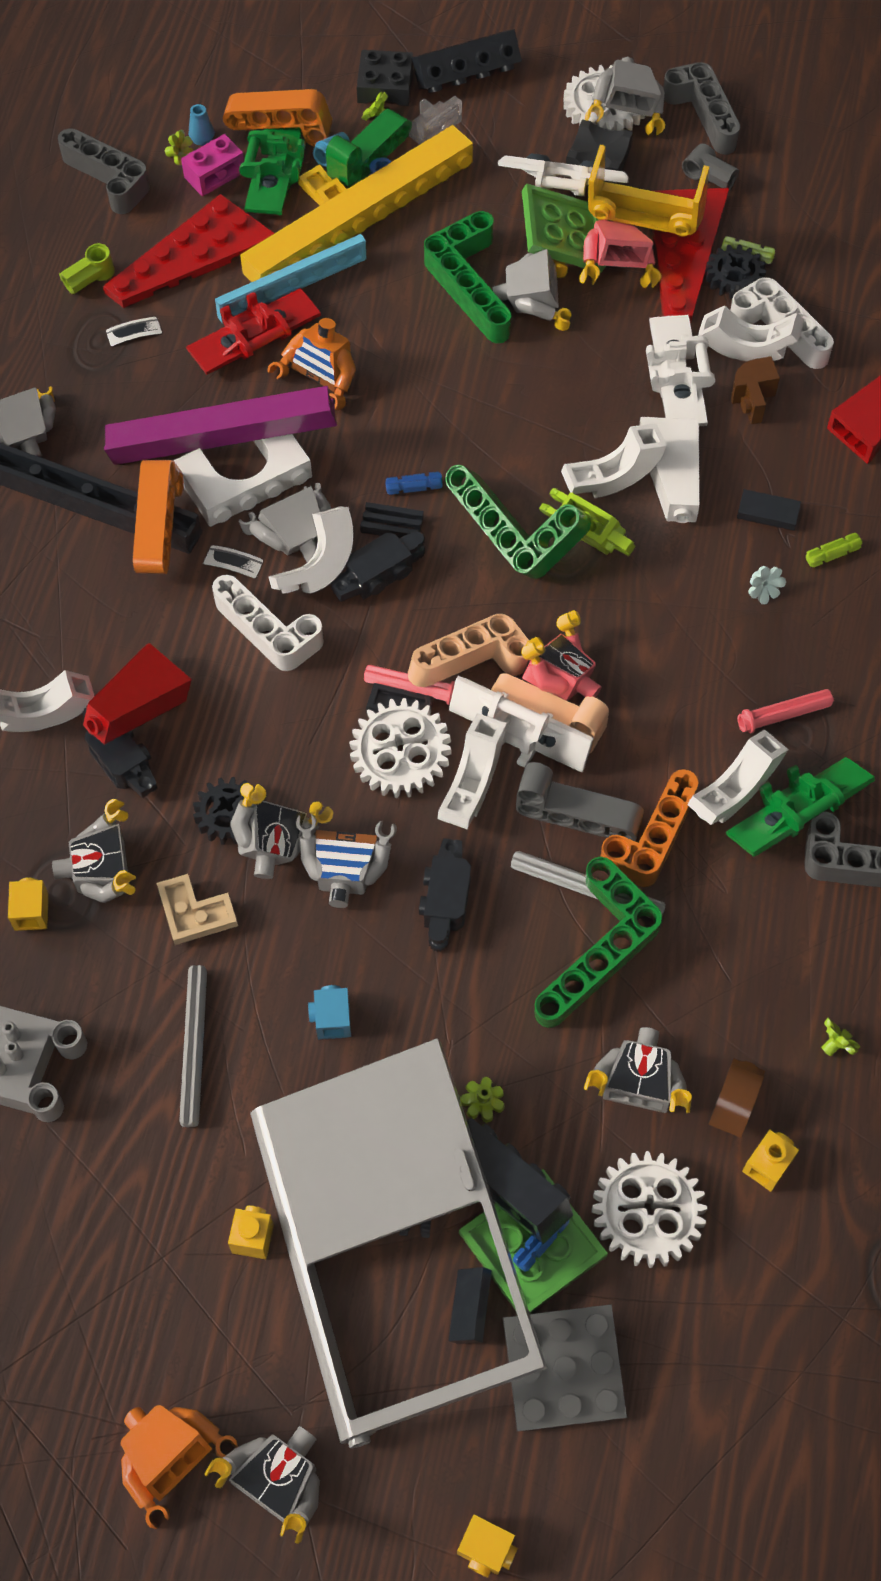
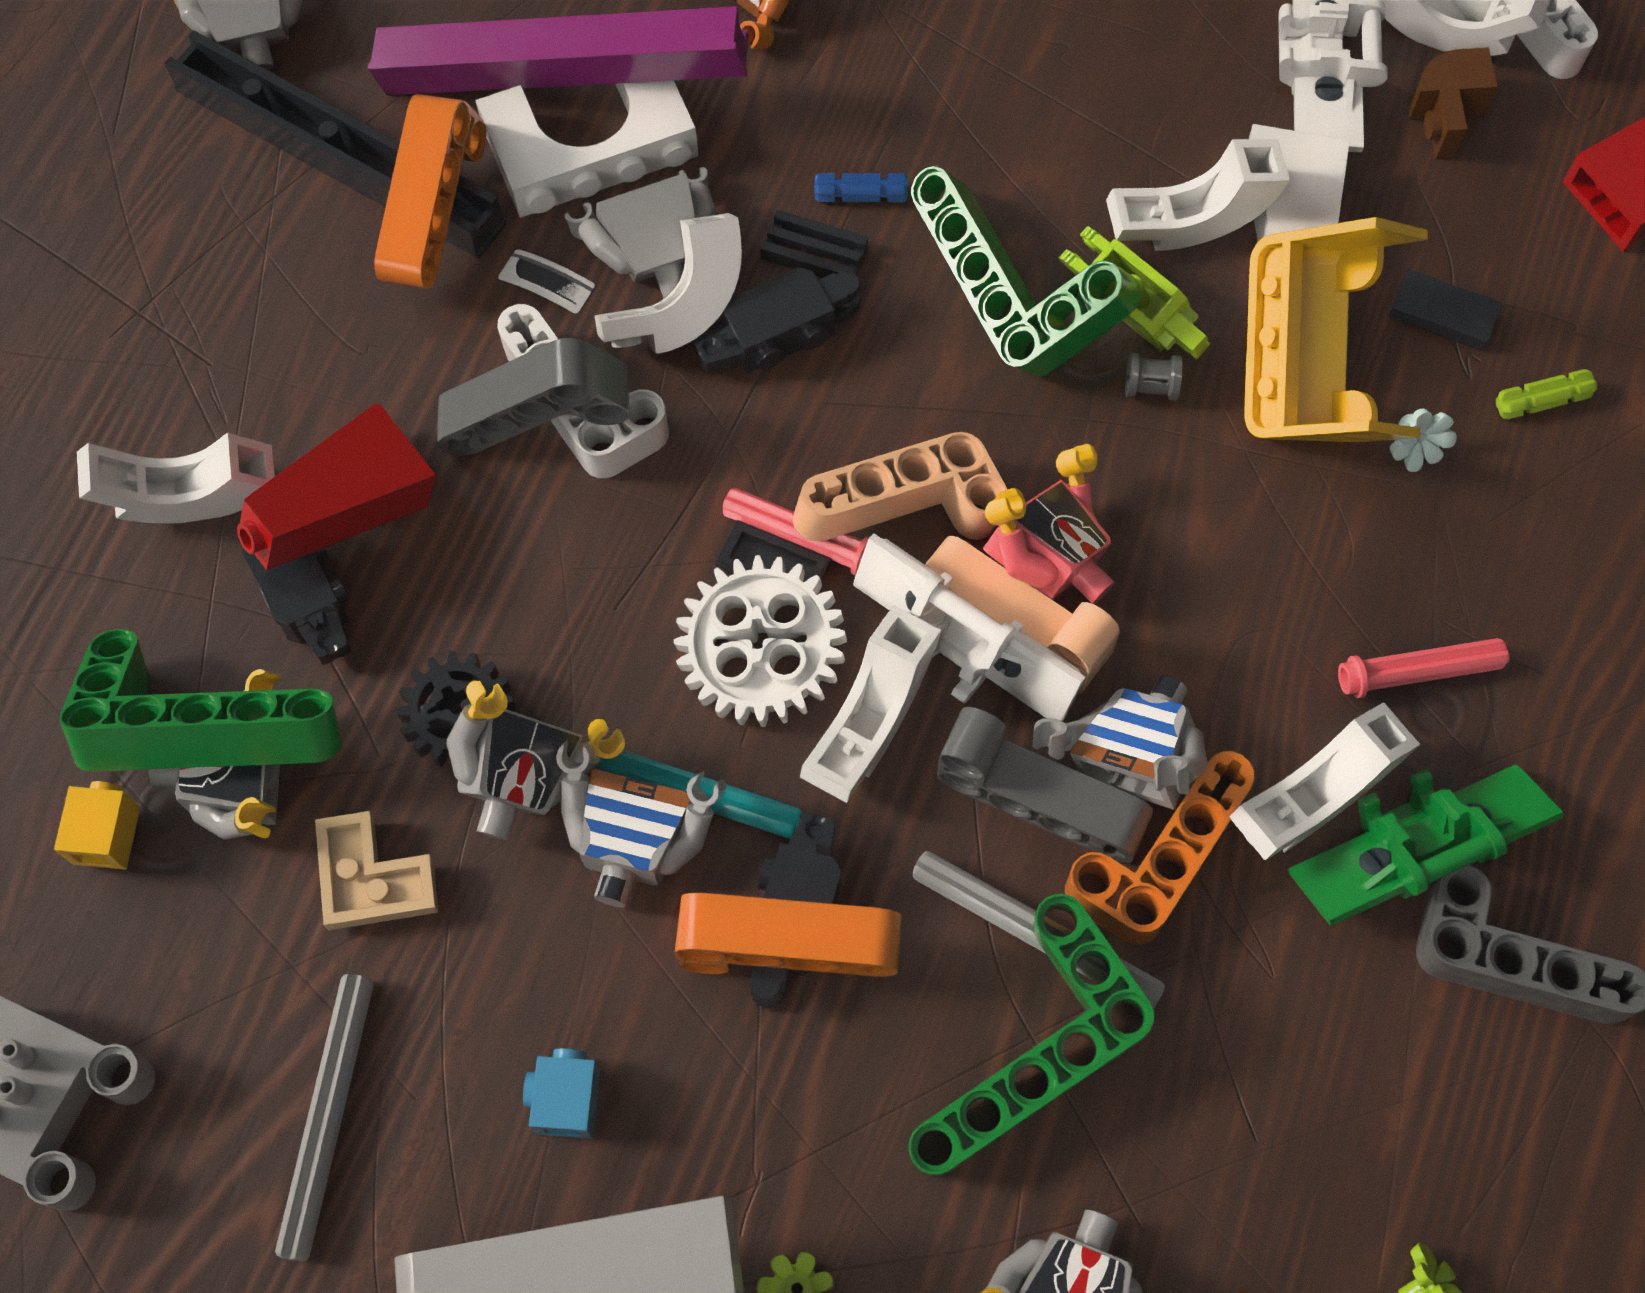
camera: 10 degrees right, 5 degrees up
(76, 838) = (119, 727): none -> green beam
(241, 623) = (532, 391): none -> dark grey beam
(401, 841) = (735, 804): none -> teal axle
(444, 903) = (785, 935): none -> orange beam
(605, 569) = (1153, 376): none -> dark grey bush
(626, 772) = (1134, 743): none -> torso
(687, 530) = (1301, 331): none -> yellow windscreen

